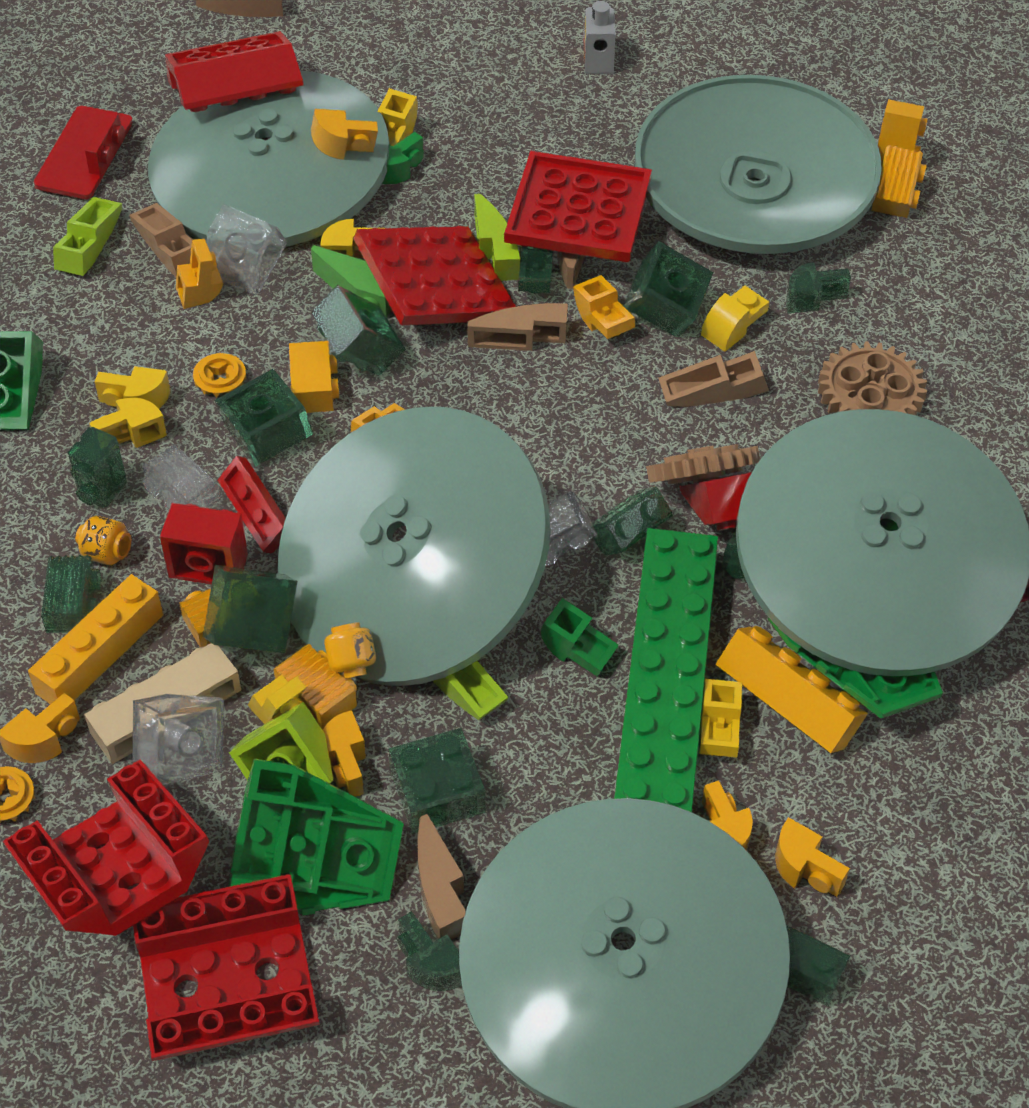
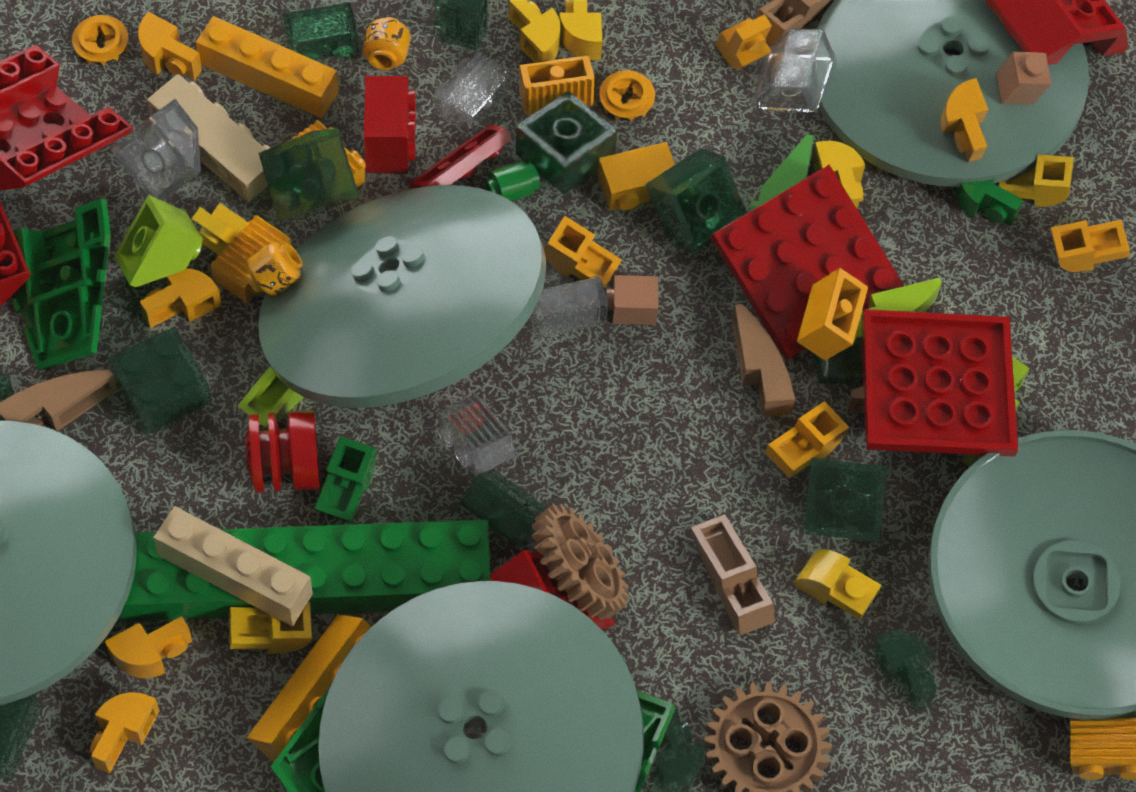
camera: 75 degrees right, 10 degrees up
(198, 414) = (547, 80): none -> light orange brick
(288, 469) = (513, 181): none -> green brick
(315, 88) = (1023, 78): none -> nougat brick
(439, 391) = (633, 300): none -> nougat brick
(462, 105) = (1083, 245): none -> light orange brick
(502, 255) = (832, 314): none -> light orange brick
(545, 676) = (283, 451): none -> red wheel
(676, 715) = (233, 565): none -> tan brick

